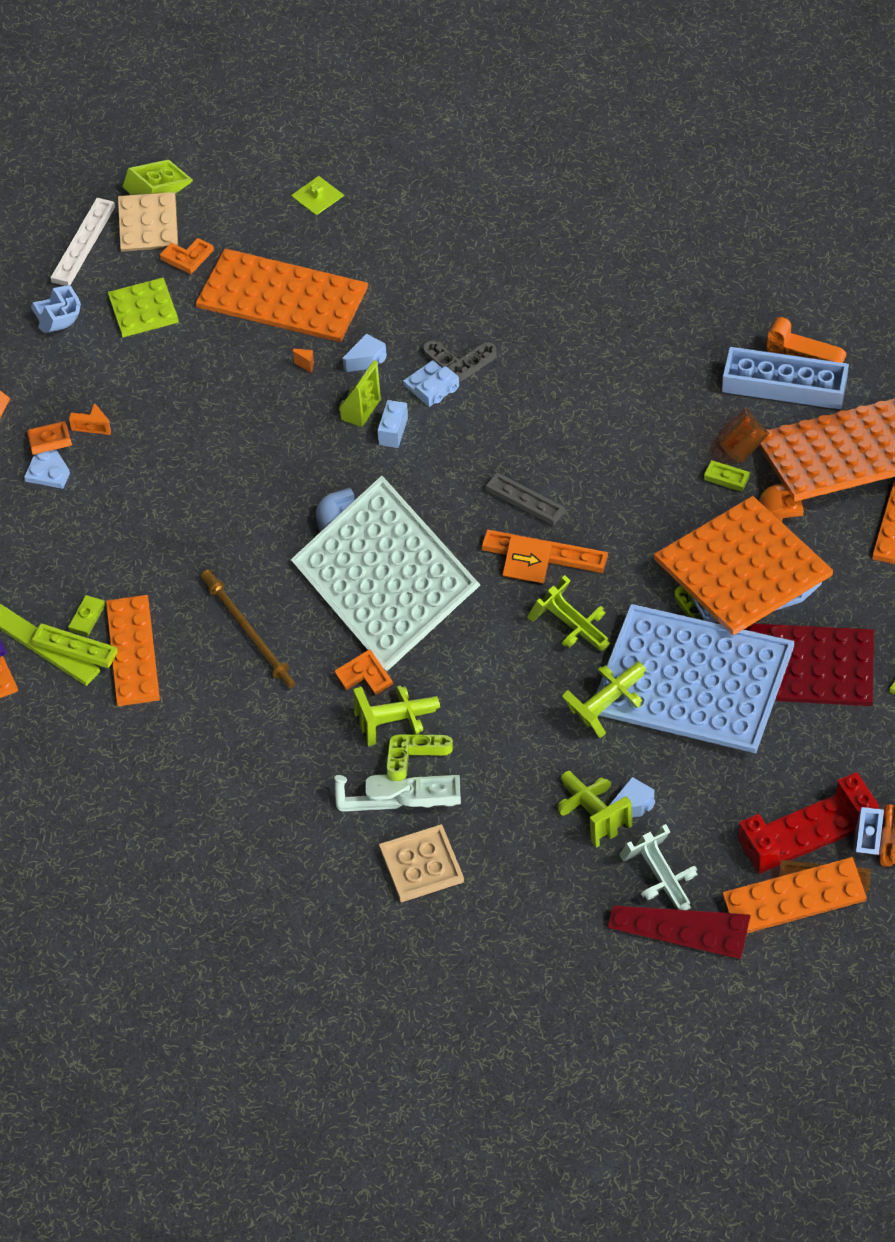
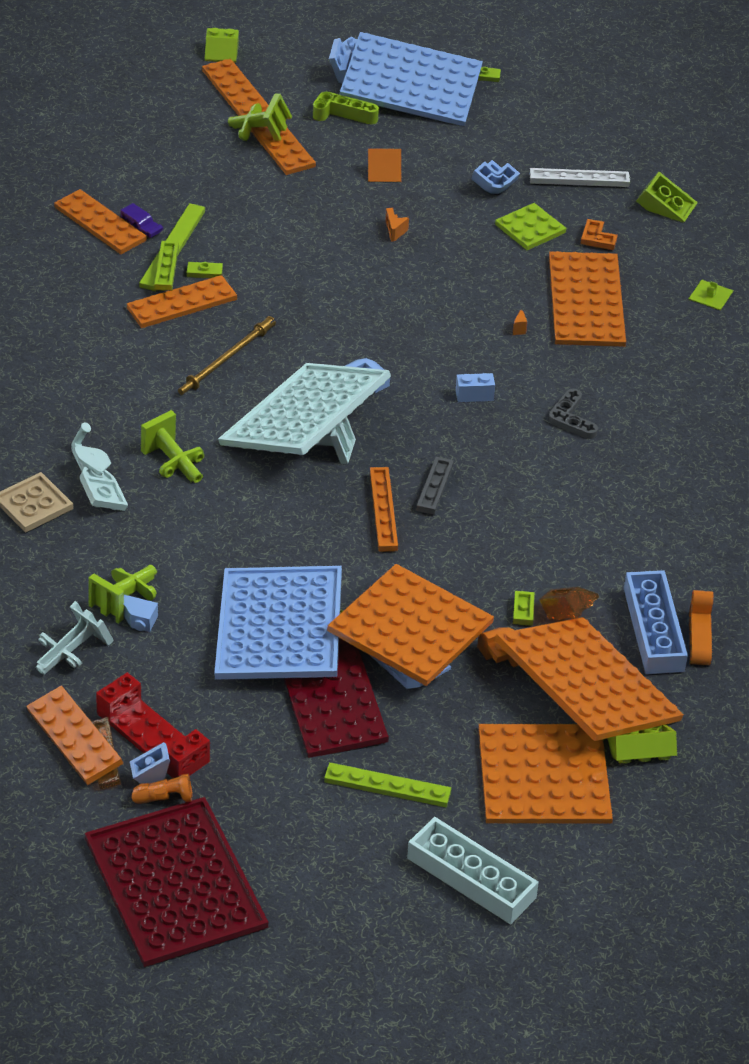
camera: 65 degrees right, 10 degrees down
(48, 470) = (339, 216): light blue plate -> none
(49, 437) = (366, 206): orange tile -> none
(147, 221) = (617, 203): tan plate -> none
(362, 397) = (489, 355): lime slope -> none
(364, 354) = (543, 356): light blue slope -> none
(365, 668) = (210, 429): orange plate -> none
(432, 383) = (534, 404): light blue plate -> none
(434, 745) = (142, 465): lime beam -> none
(527, 559) = (366, 497): orange tile -> none
(557, 605) = (321, 518): lime piece -> none
(599, 702) = (212, 561): lime piece -> none
(700, 930) = (20, 679): dark red wing -> none

